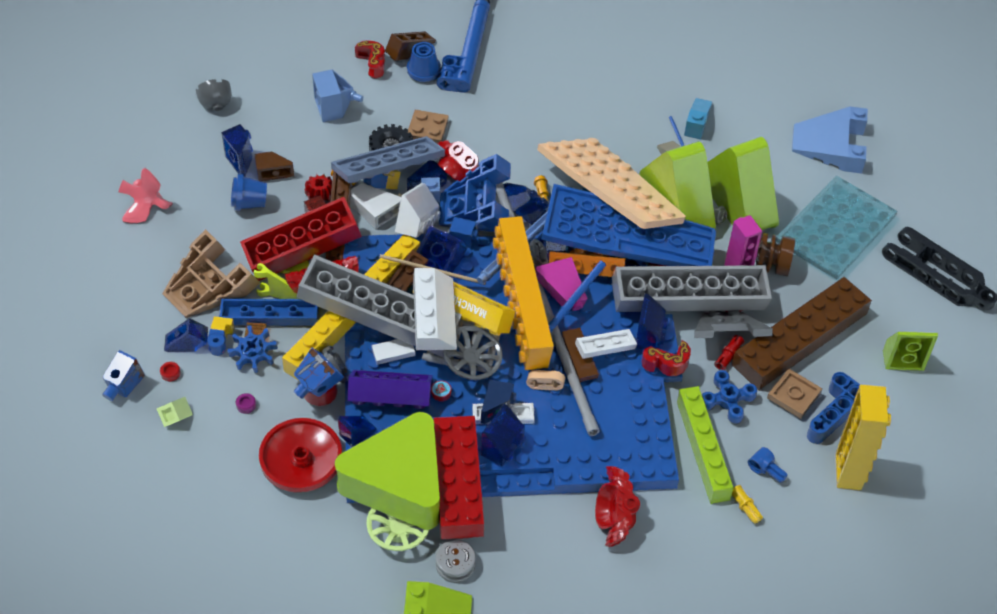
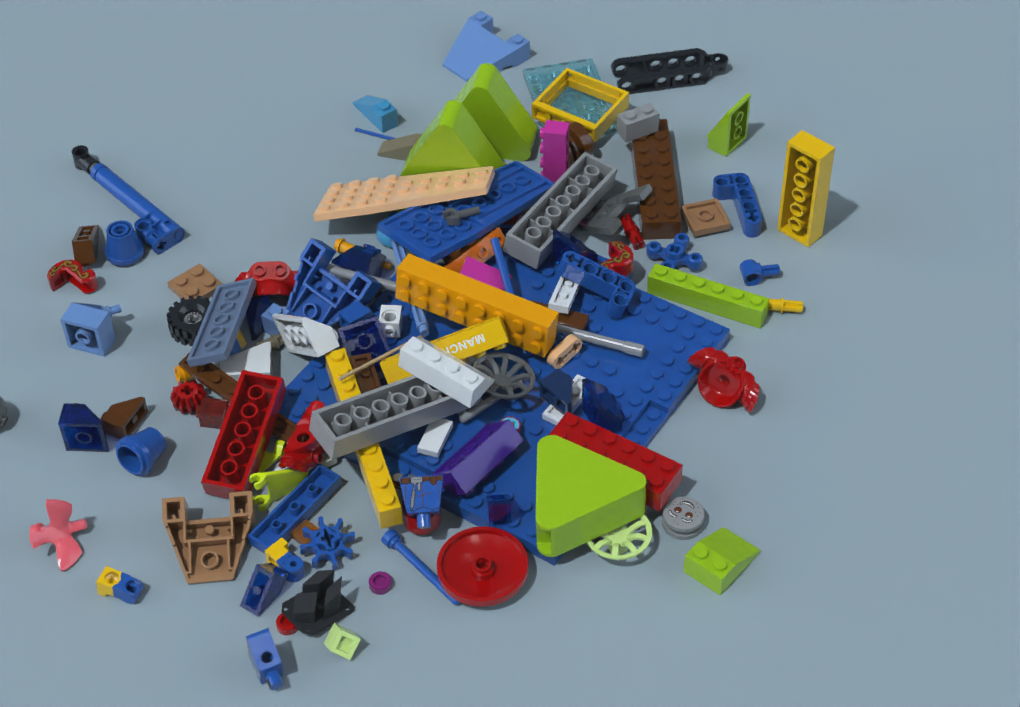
camera: 50 degrees left, 5 degrees down
(128, 257) = (119, 585): none -> leg
(195, 378) = (317, 590): none -> black piece
(287, 387) = (393, 540): none -> blue piece
(478, 254) = (391, 320): none -> white brick
(603, 223) = (453, 216): none -> dark grey bar
(629, 353) = (599, 280): none -> blue beam
(829, 208) = (619, 98): none -> yellow window
(835, 281) = (637, 122): none -> light grey brick

